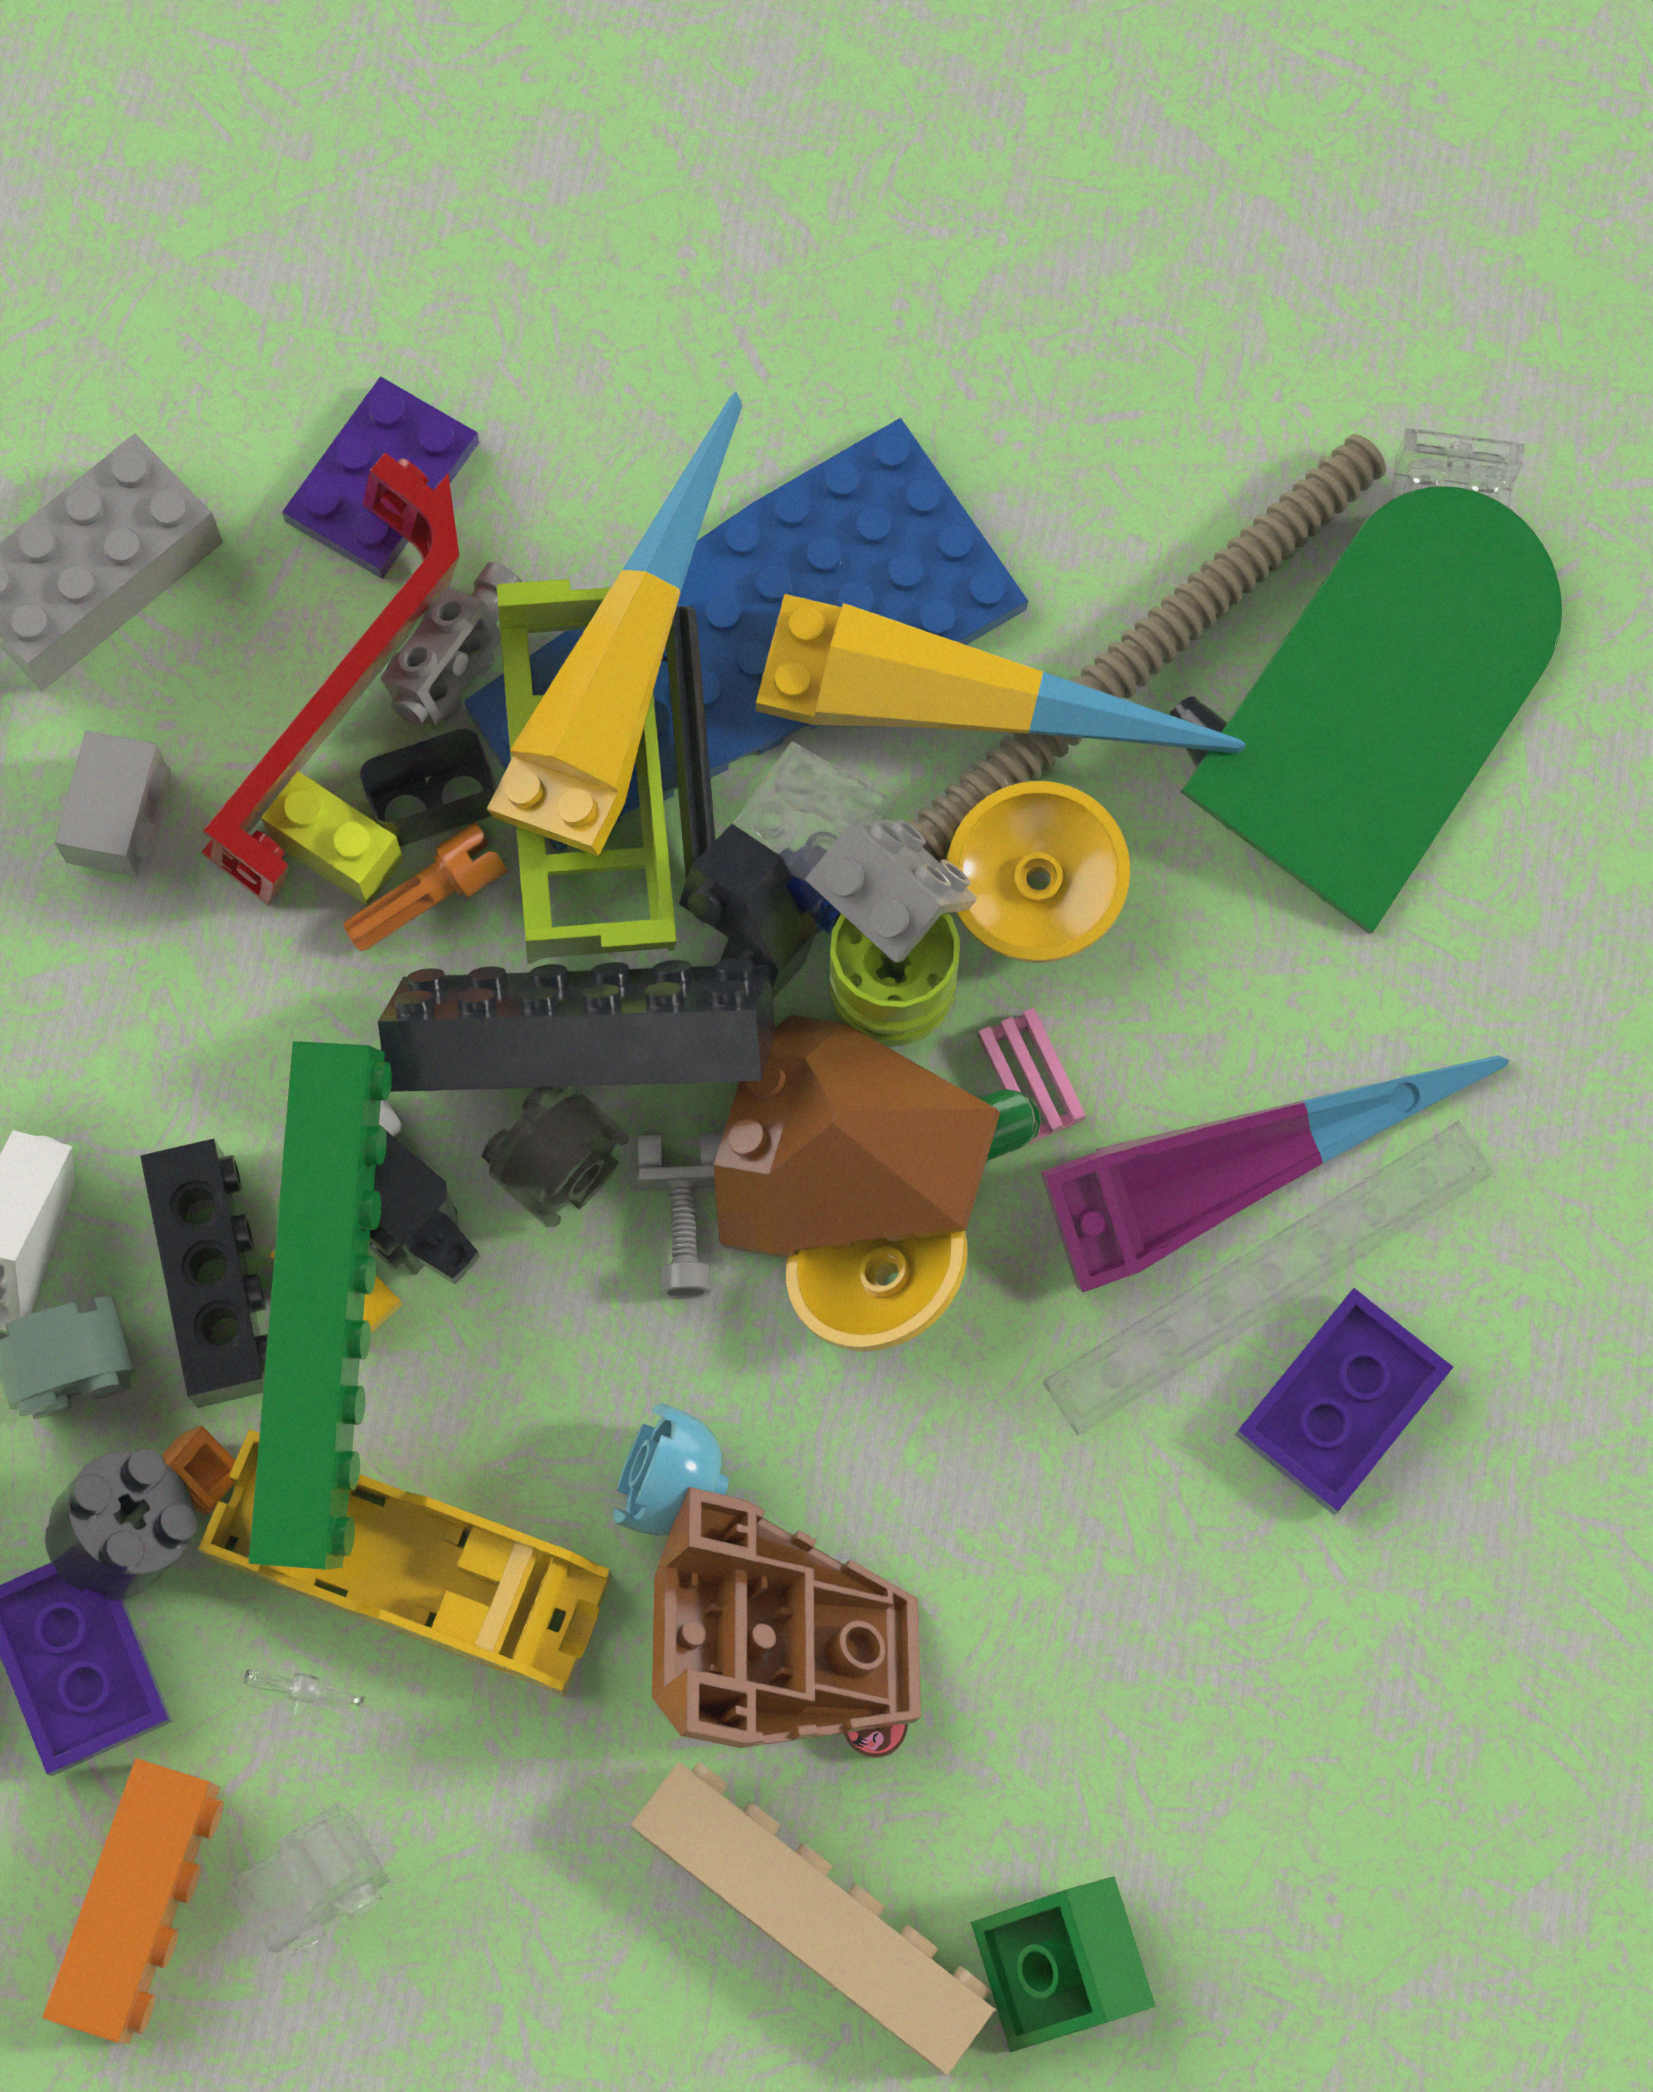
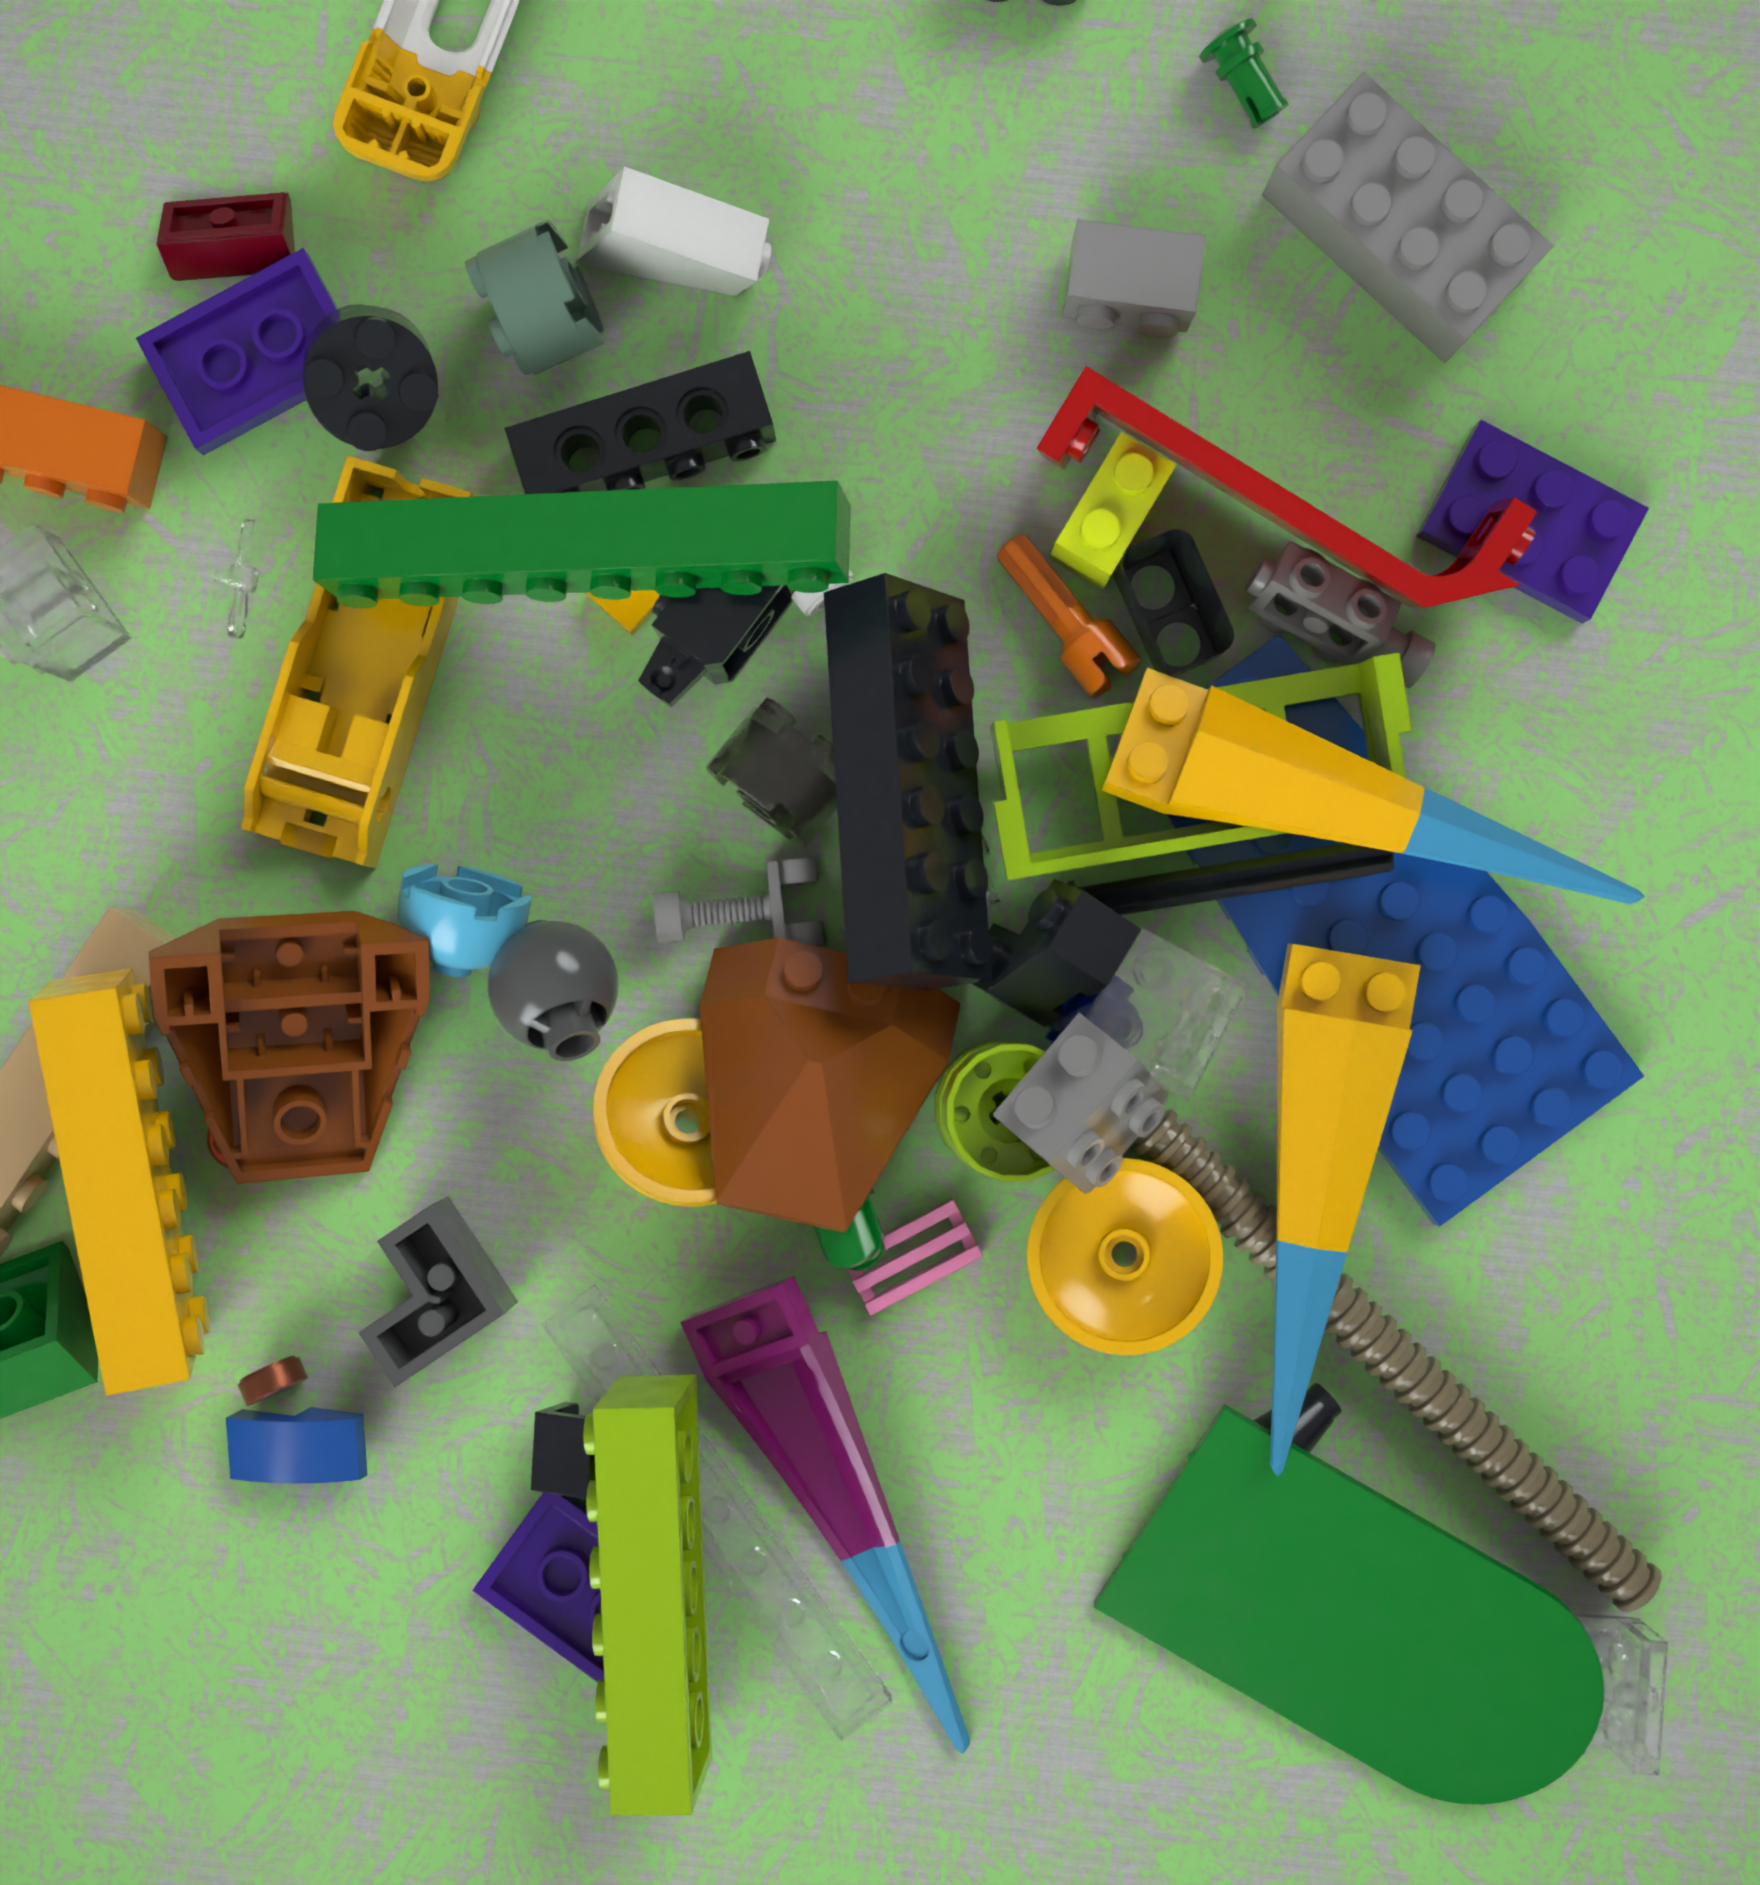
camera: 90 degrees right, 15 degrees up
(201, 1466) = (445, 447): orange slope -> none
(747, 1382) = (554, 988): none -> dark grey brick
(904, 1809) = (120, 1178): none -> yellow brick
(1044, 1506) = (451, 1287): none -> dark grey brick
(1121, 1702) = (272, 1380): none -> copper tile
(1190, 1681) = (296, 1449): none -> blue slope
(1204, 1401) = (559, 1452): none -> black panel
(1334, 1314) = (650, 1594): none -> lime brick

